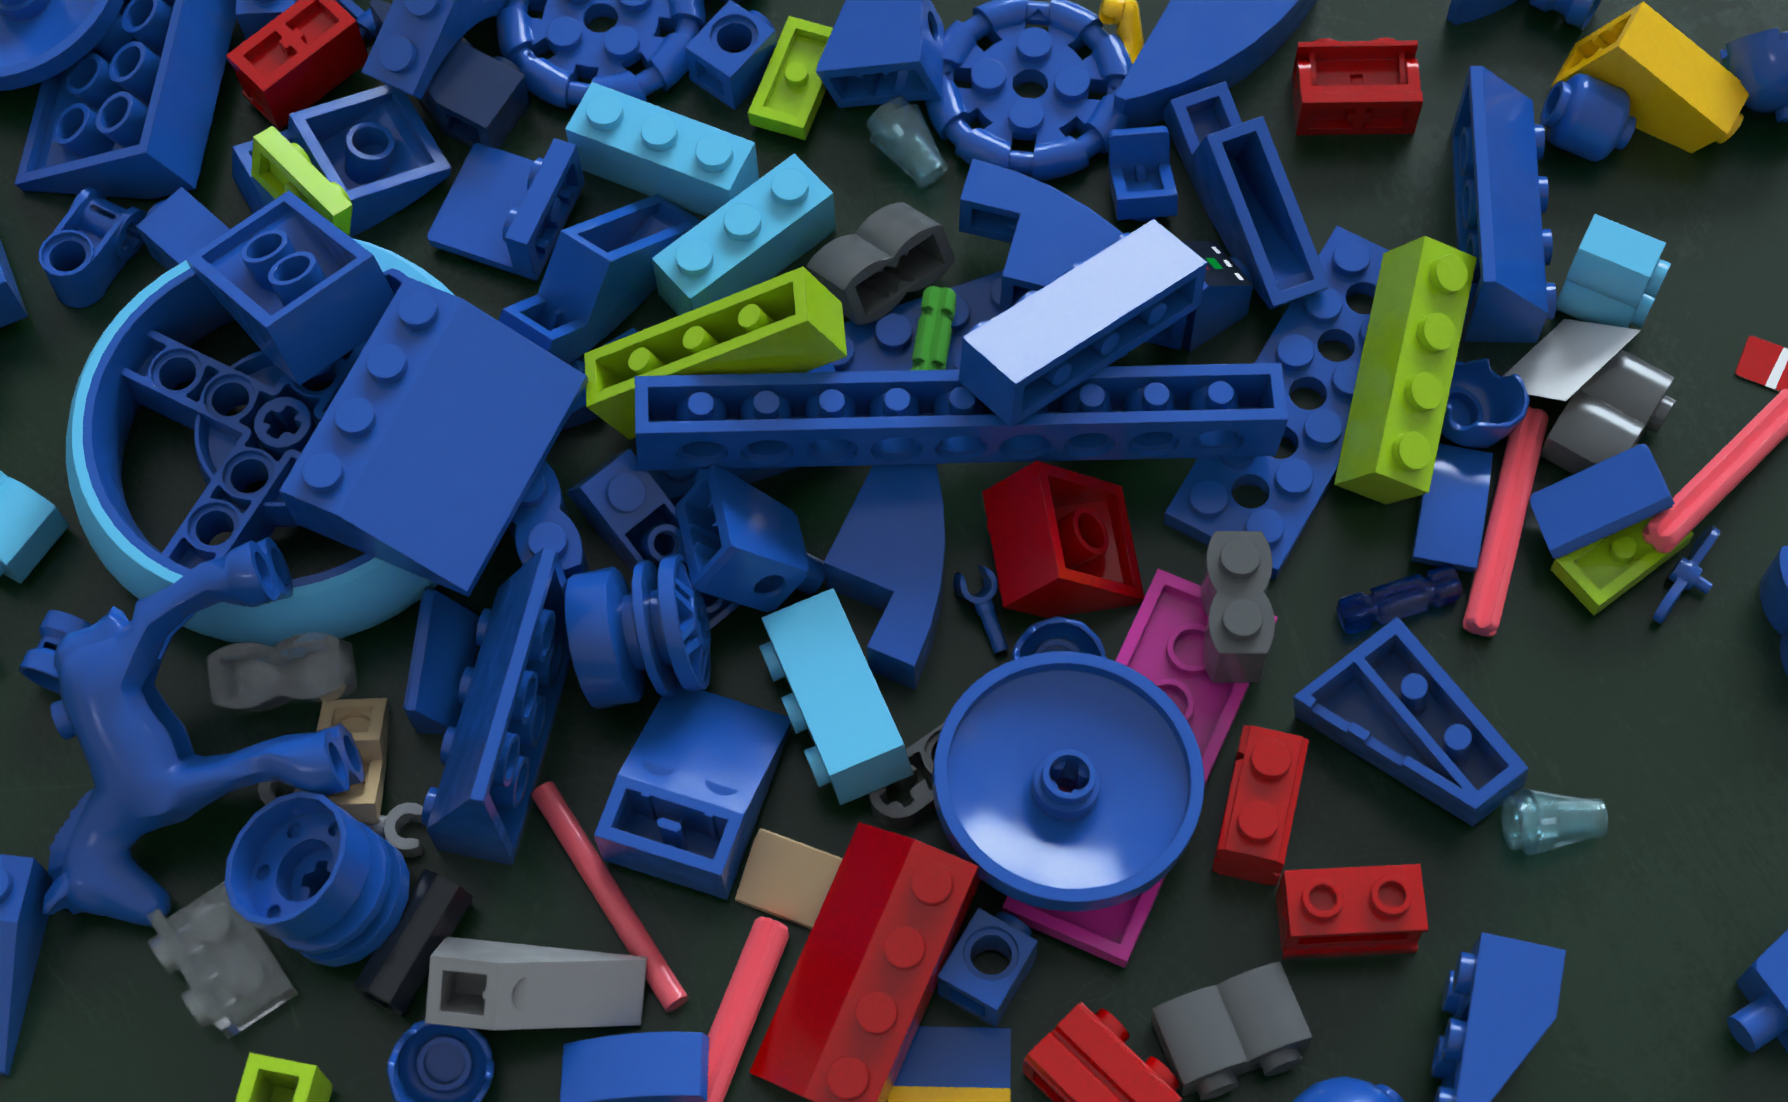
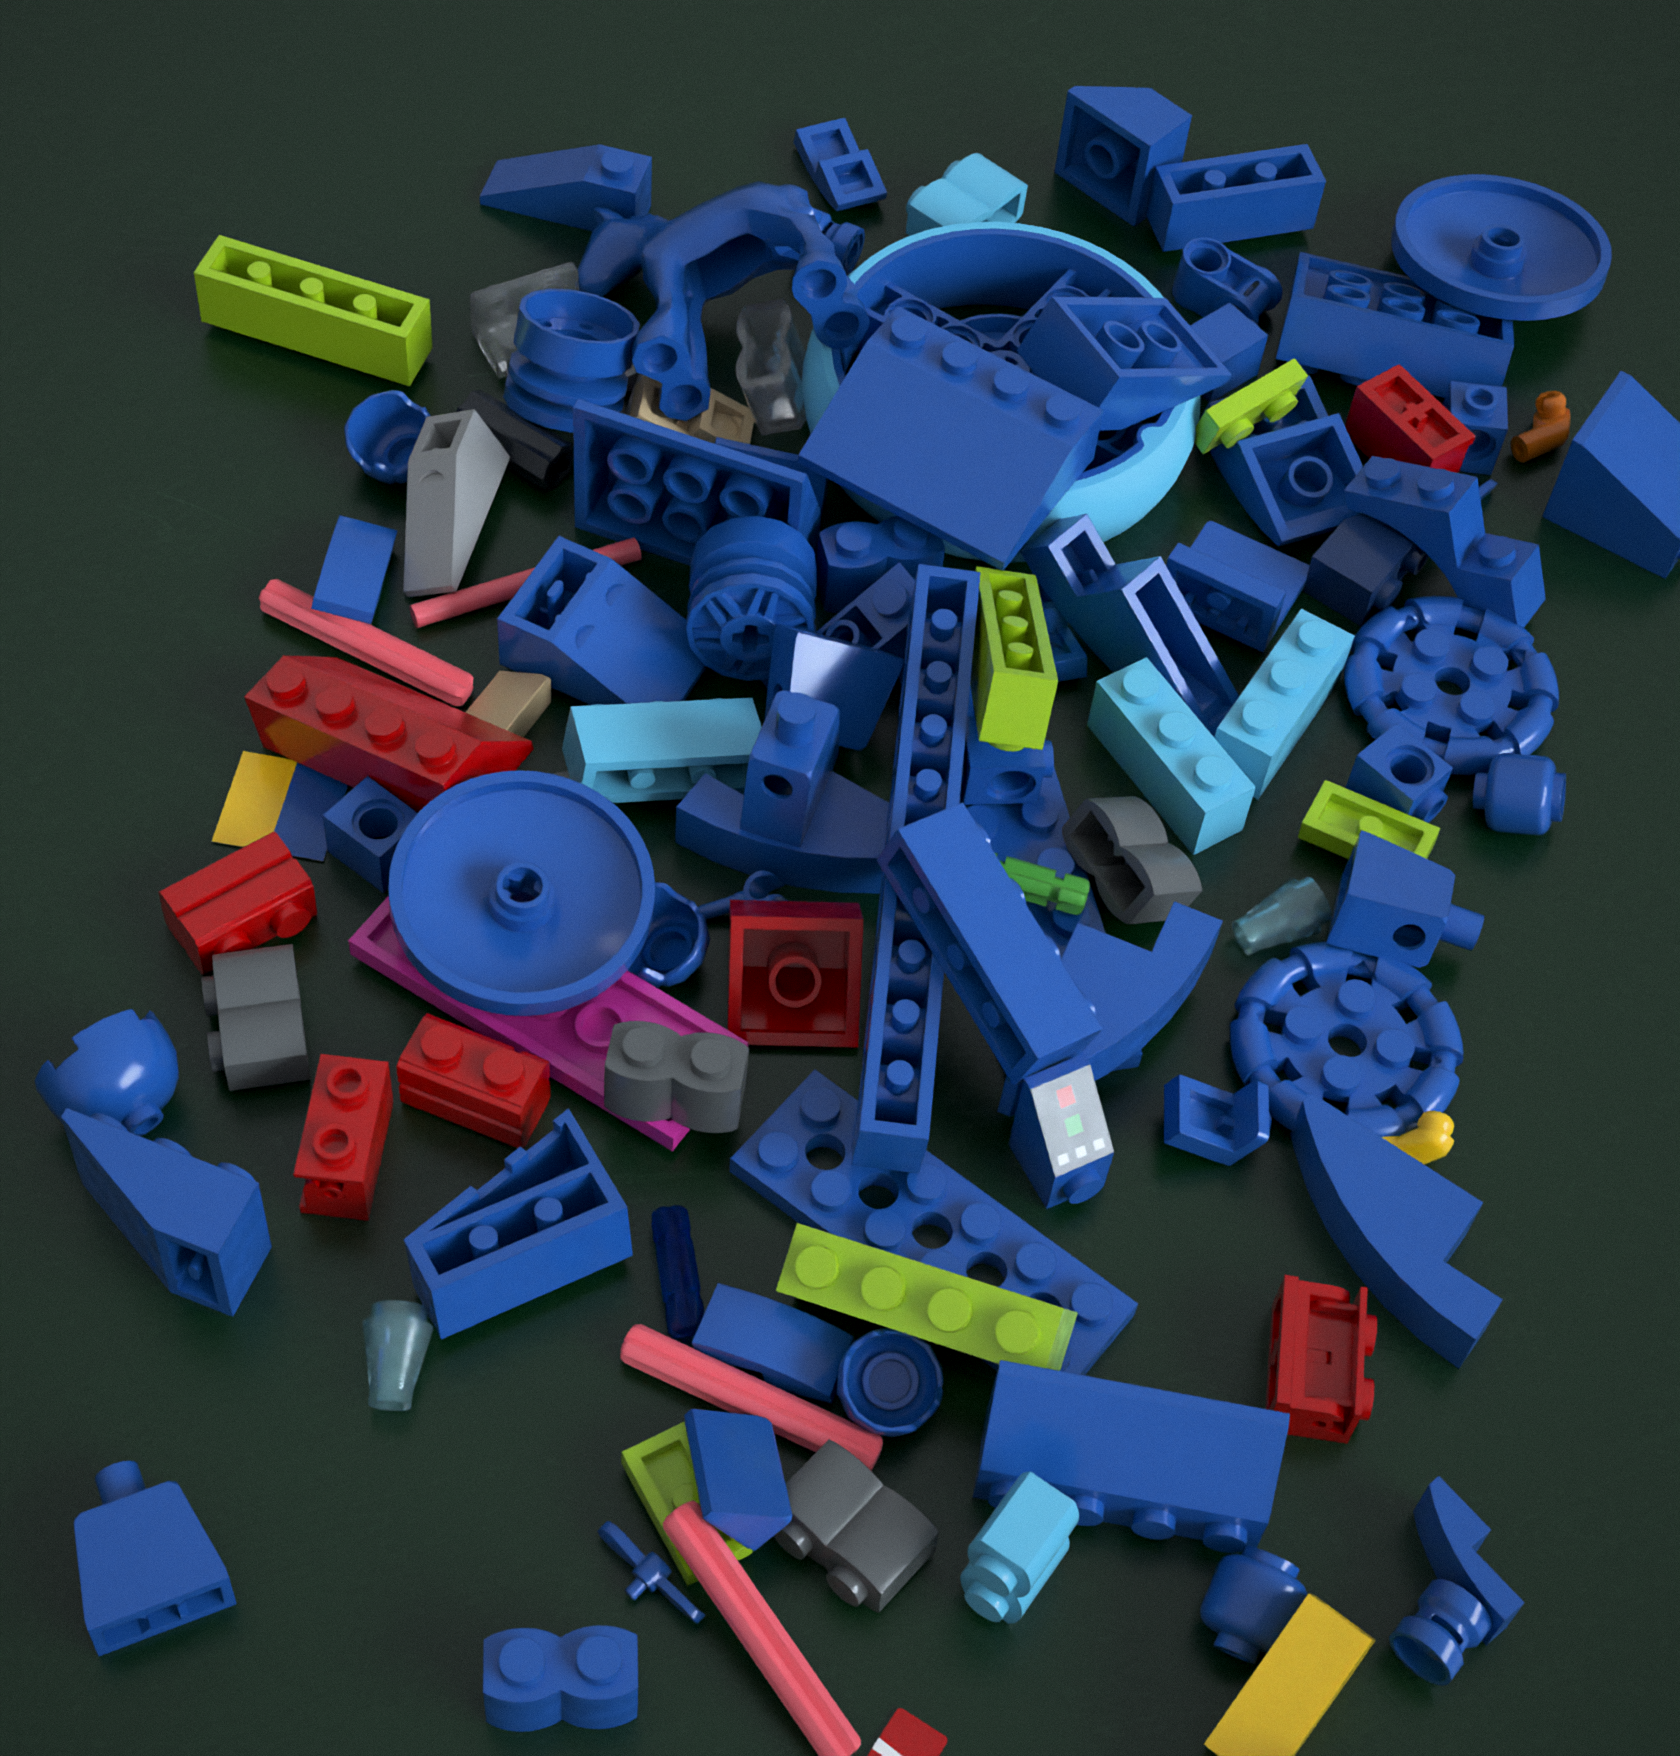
camera: 90 degrees right, 10 degrees down
(876, 544) = (794, 744): none -> blue torso
(1246, 193) = (1177, 1204): blue slope -> none
(1569, 357) = (925, 1489): white sticker -> none

